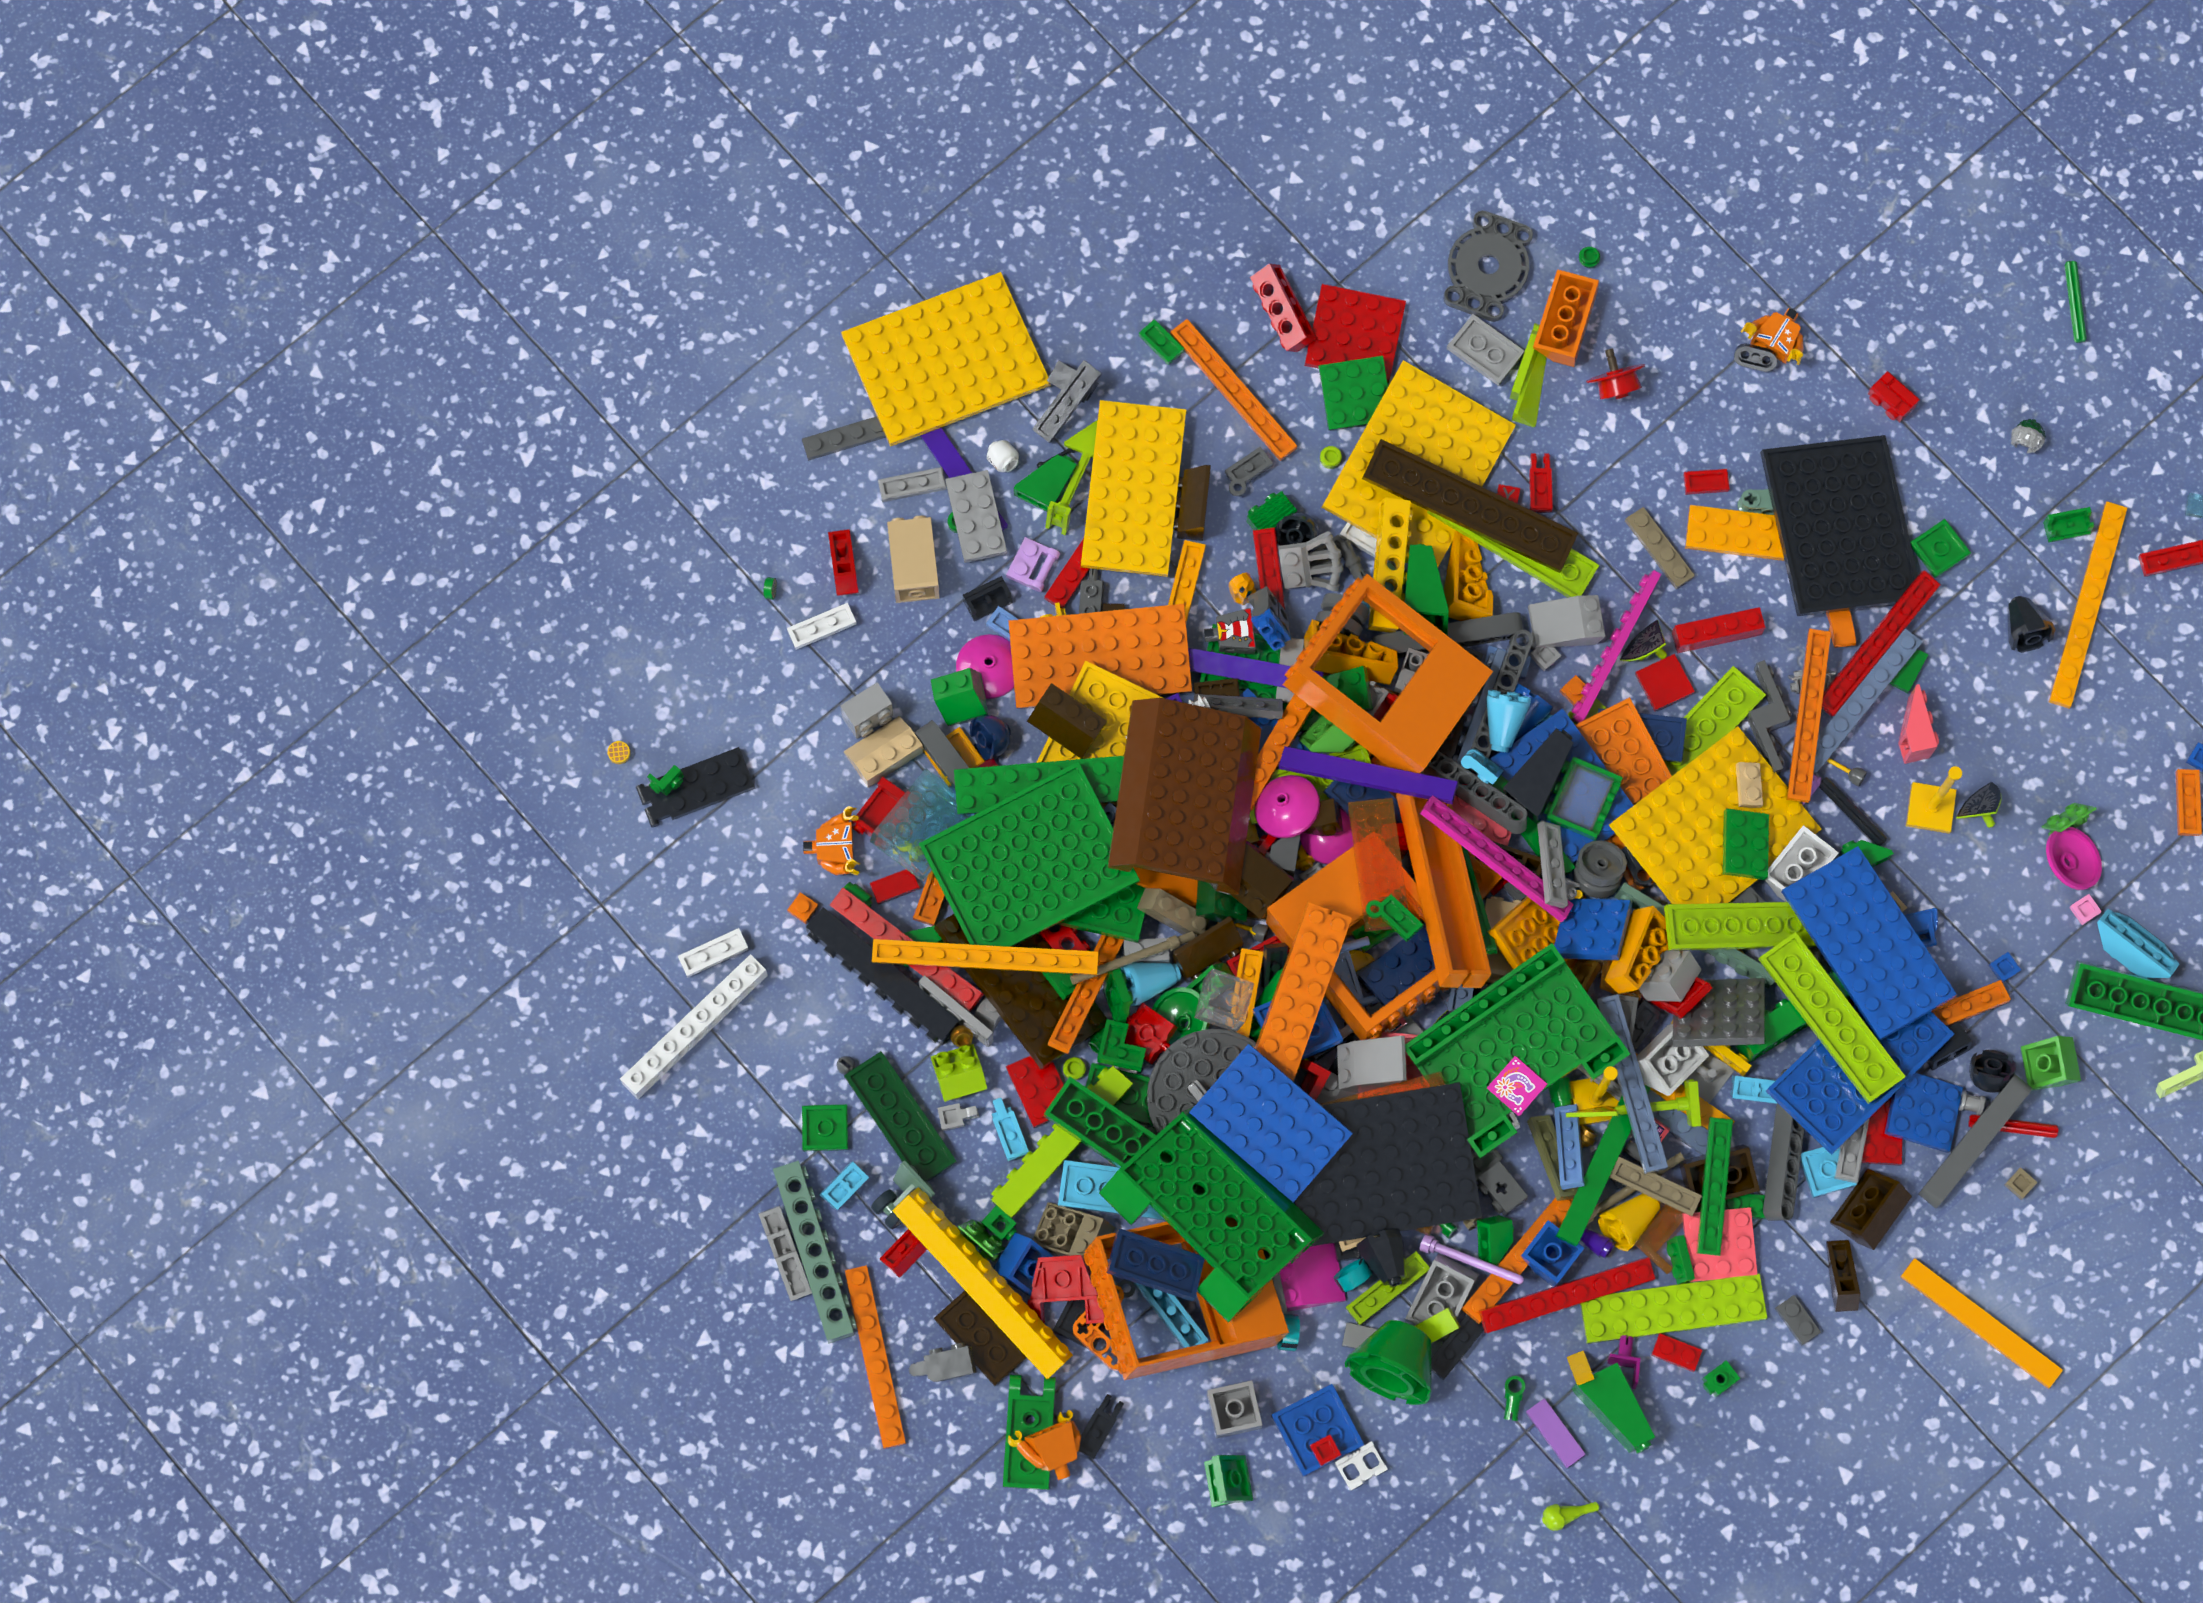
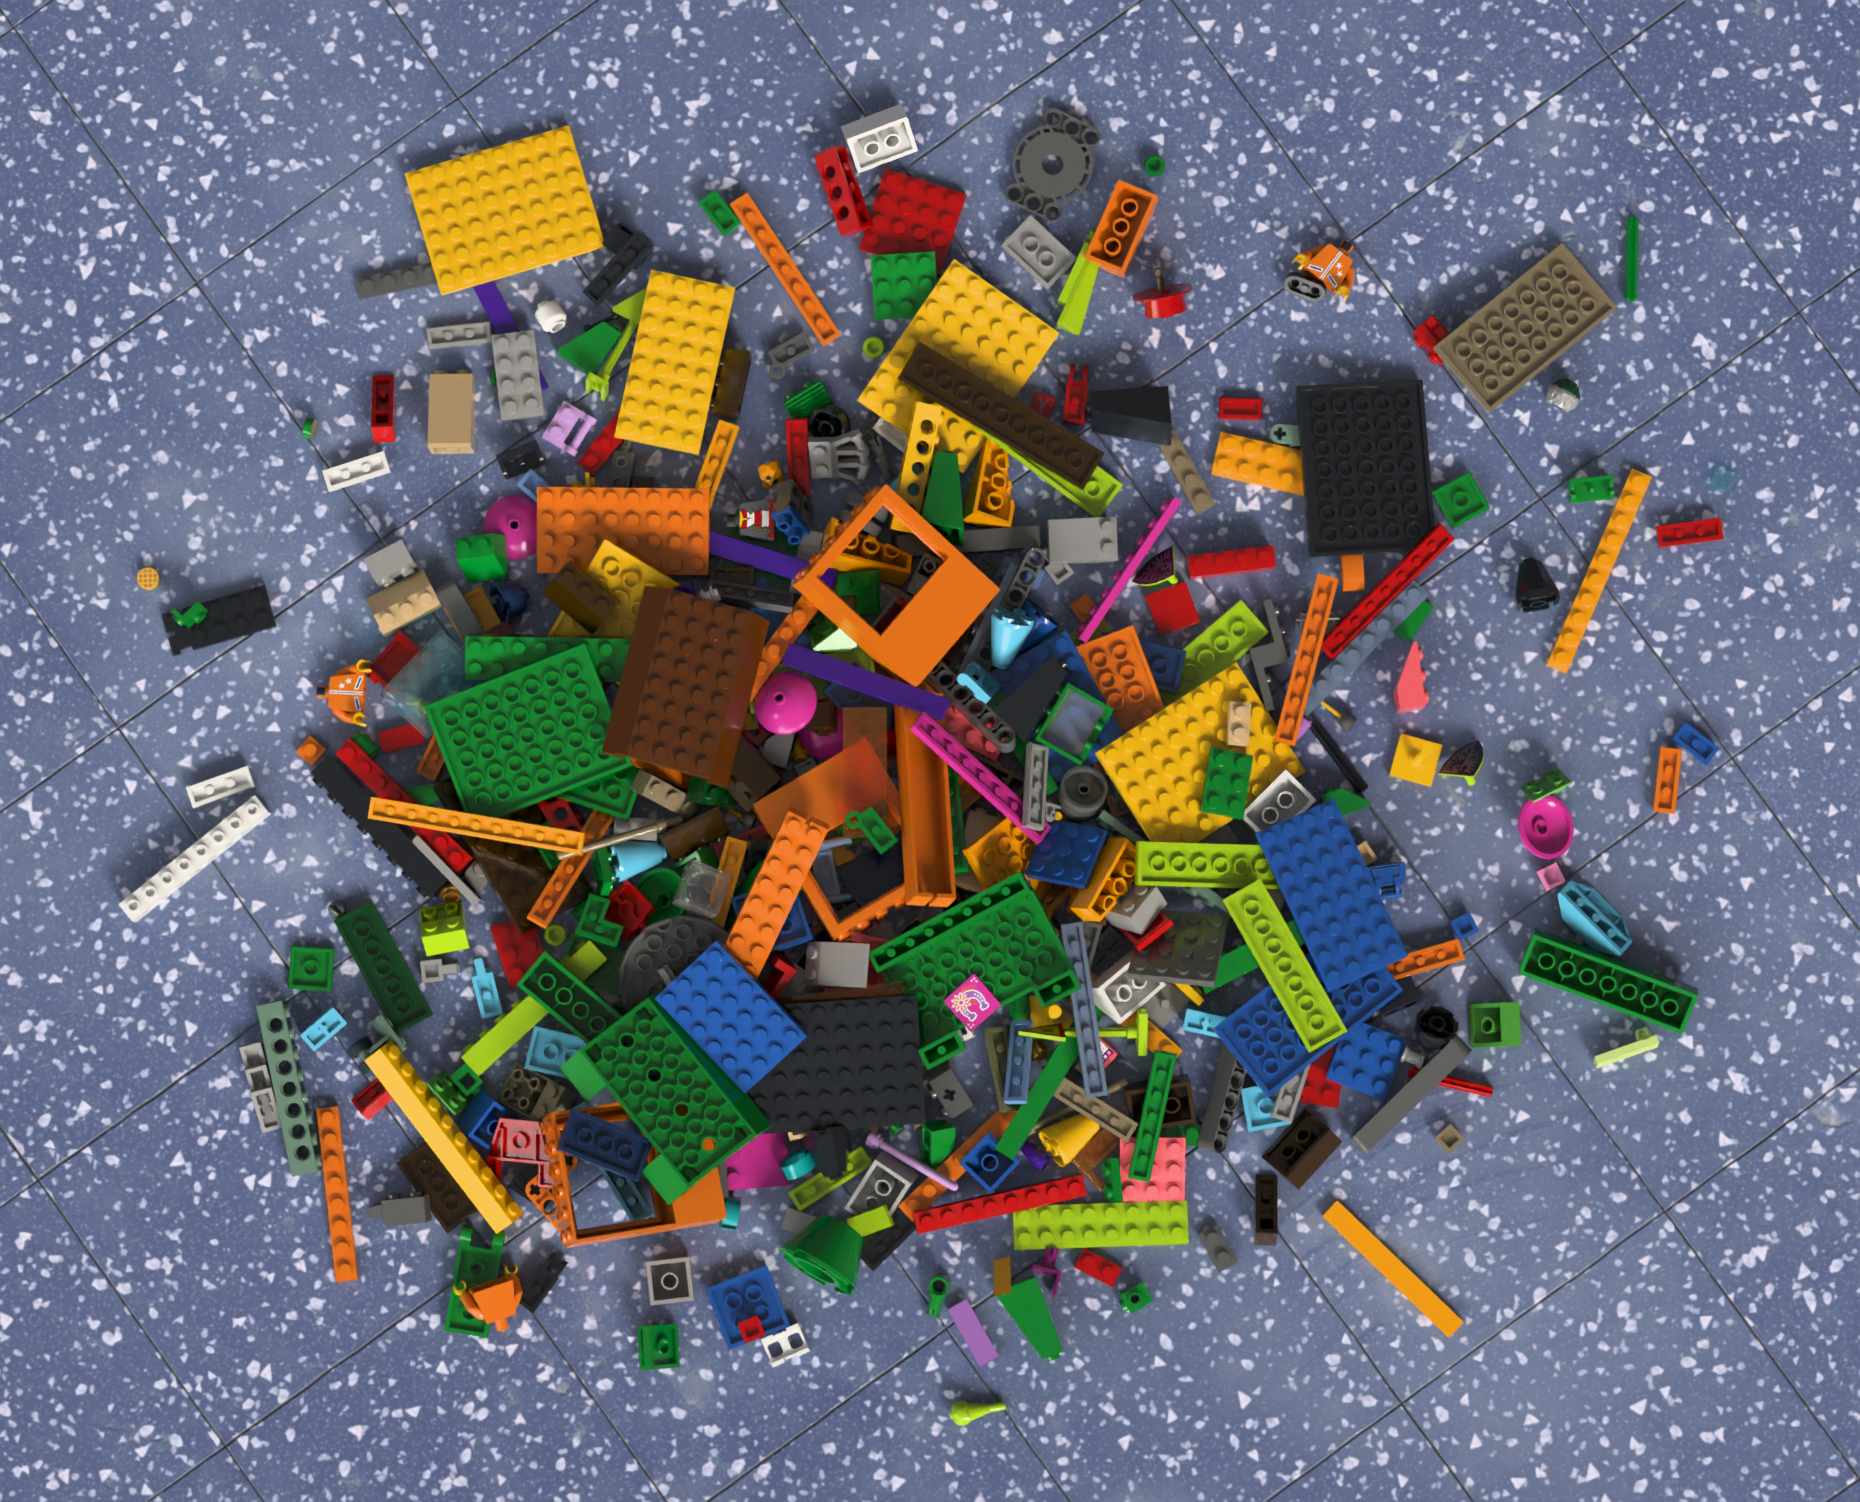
camera: 10 degrees right, 10 degrees up
(1313, 255) = (879, 138): none -> white slope
(1600, 493) = (1131, 414): none -> black slope
(1980, 375) = (1525, 328): none -> dark tan plate

